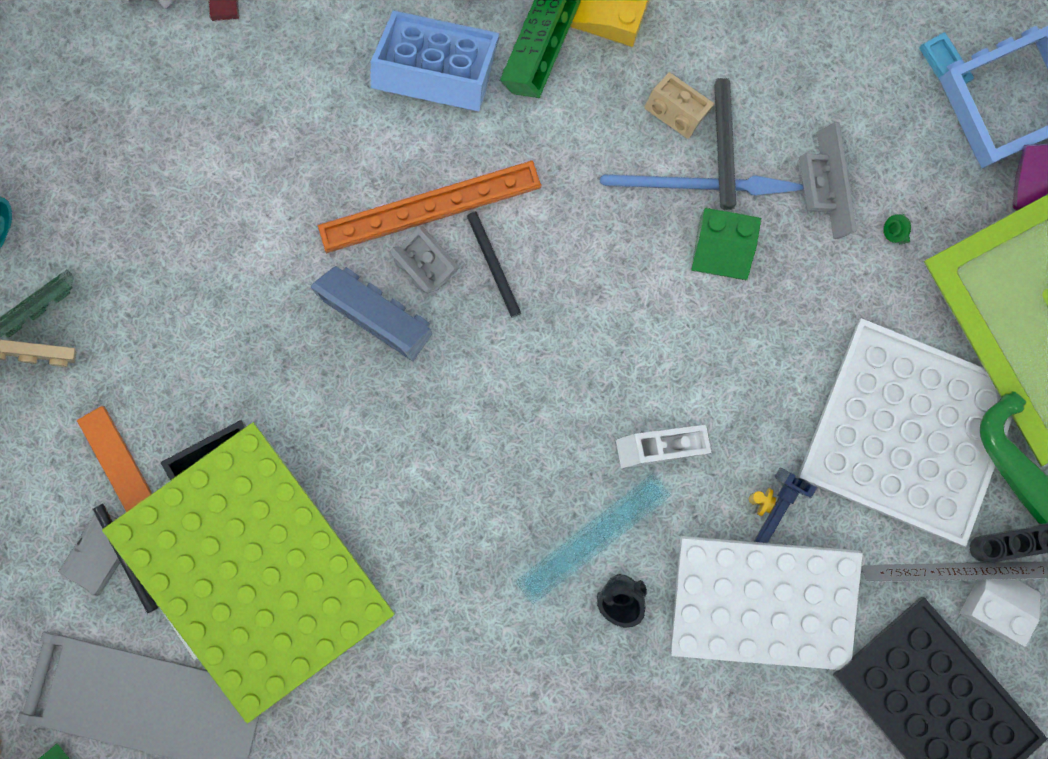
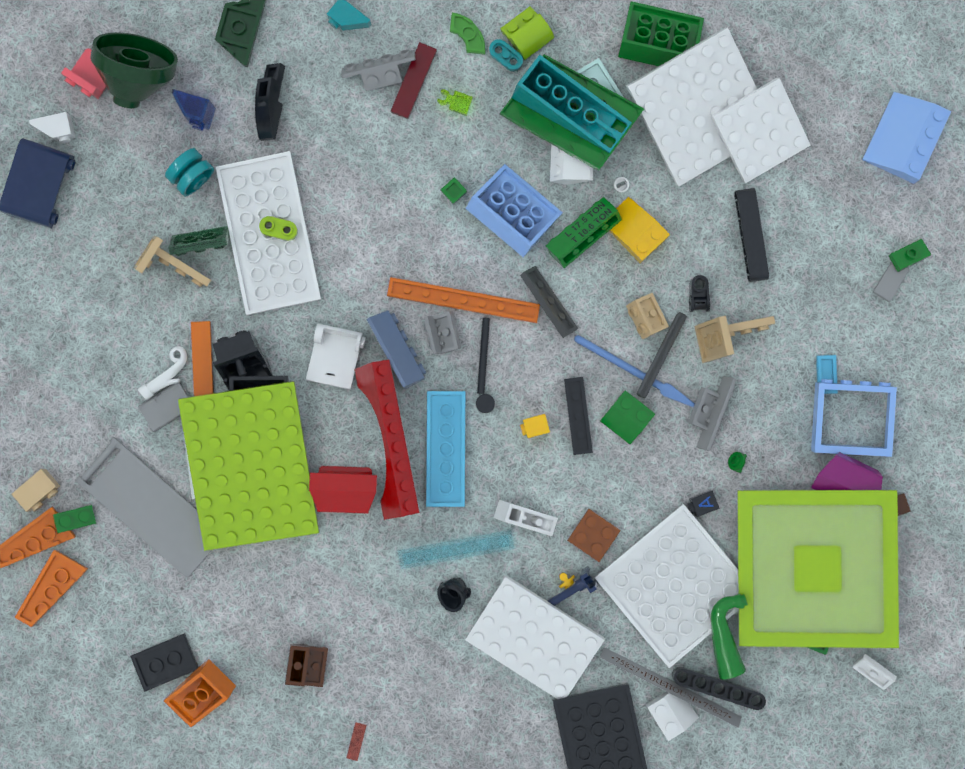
camera: 30 degrees right, 5 degrees up
(40, 86) = (267, 106): none -> black slope
(78, 514) = (165, 379): none -> white plant
(125, 251) = (269, 269): none -> white plate
(133, 236) = (277, 228): none -> lime plate
(147, 601) = (180, 435): black bar -> none
(161, 428) = (240, 357): none -> black piece
(295, 361) = (334, 353): none -> white door
(344, 74) = (453, 190): none -> green plate
(372, 369) = (378, 386): none -> red arch
(397, 537) = (343, 489): none -> red helmet
(508, 410) = (445, 449): none -> medium azure plate
(529, 324) = (485, 403): none -> black tile
(542, 150) = (549, 301): none -> dark grey plate
(611, 318) = (535, 426): none -> yellow brick
(660, 276) = (578, 415): none -> black plate
(731, 48) = (699, 295): none -> black piece
(766, 422) = (593, 535): none -> dark orange plate
(790, 74) = (716, 335): none -> tan piece
(886, 304) = (703, 503): none -> black brick

